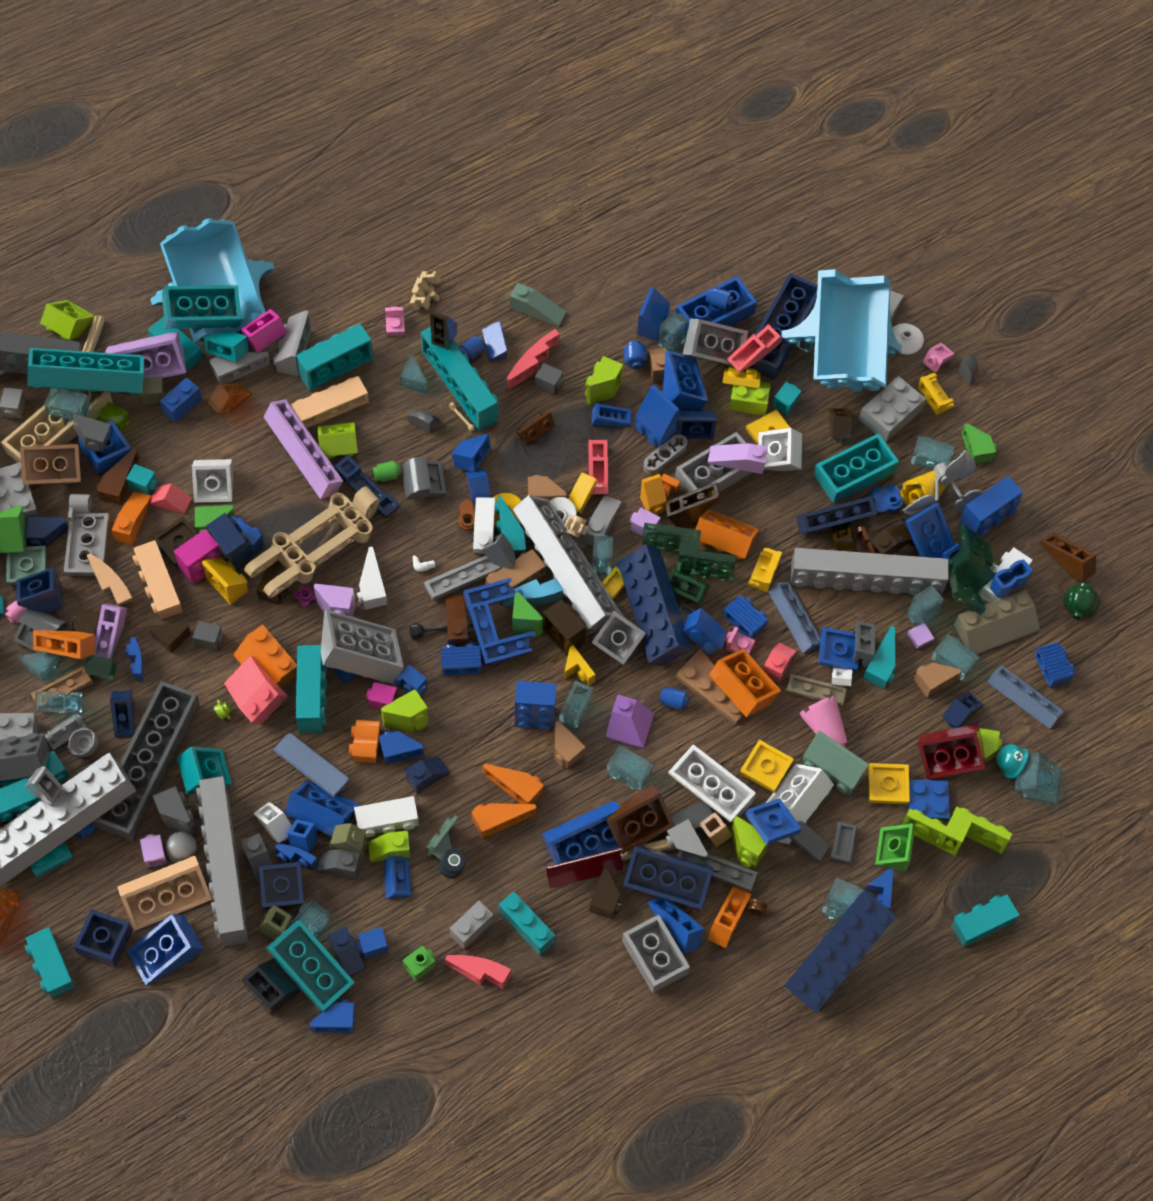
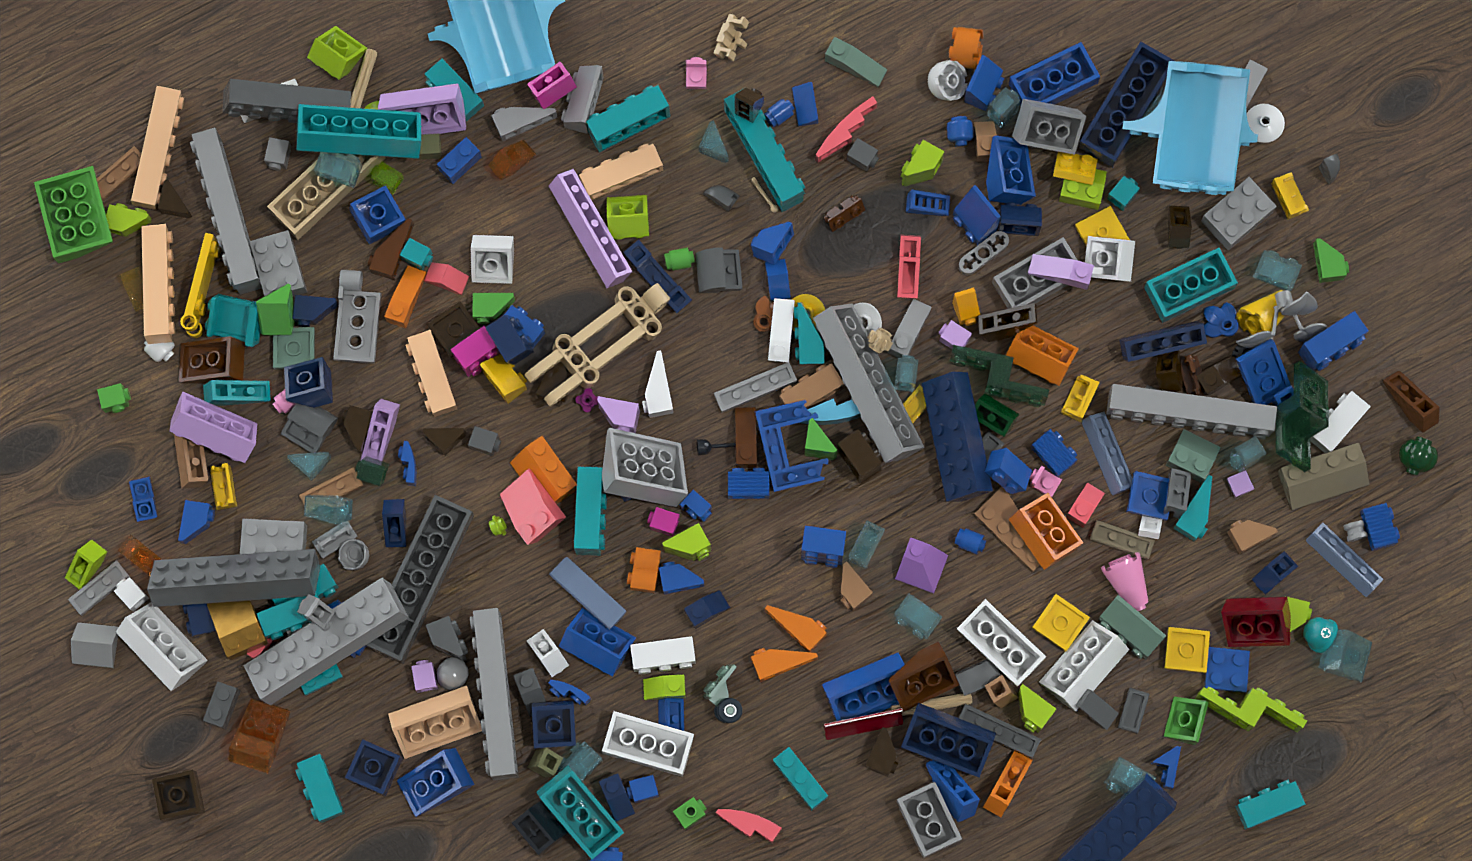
camera: 10 degrees right, 15 degrees up
(50, 465) = (320, 236): medium nougat slope -> none
(64, 643) = (338, 447): orange slope -> none
(92, 432) = (364, 203): dark grey slope -> none
(109, 580) = (382, 374): light nougat slope -> none
(201, 306) = (484, 57): teal brick -> none
(202, 764) = (477, 591): teal slope -> none
(227, 345) = (511, 101): teal slope -> none
(303, 835) = (577, 672): blue brick -> none
(340, 863) = (612, 700): dark grey slope -> none
(349, 838) = (623, 680): olive slope -> none
(375, 899) = (648, 744): none -> white slope
(421, 567) = (712, 372): white animal -> none
(471, 925) = (744, 776): light grey brick -> none
(500, 552) = (797, 366): dark grey brick -> none
(544, 488) = (847, 291): medium nougat slope -> none
(576, 663) = (869, 494): yellow slope -> none
(582, 491) = (889, 296): yellow slope -> none
(618, 637) = (917, 472): light grey slope -> none
(621, 313) = (947, 80): none -> white cylinder
(635, 287) = (966, 46): none -> orange brick
(670, 485) = (985, 292): orange tile -> none
(686, 840) = (969, 702): light grey slope -> none
(719, 298) = (1058, 72): blue brick -> none
(755, 348) = (1091, 138): coral slope -> none
(757, 907) = (1037, 776): reddish brown bush -> none
(773, 821) = (1060, 693): blue plate -> none
(875, 611) = (1193, 455): none -> sand green slope
(937, 356) = (1297, 149): bright pink bracket -> none
(954, 654) = (1274, 511): clear light blue brick -> none
(1010, 578) = (1338, 433): blue brick -> none
(1032, 669) = (1355, 531): none -> light grey wheel

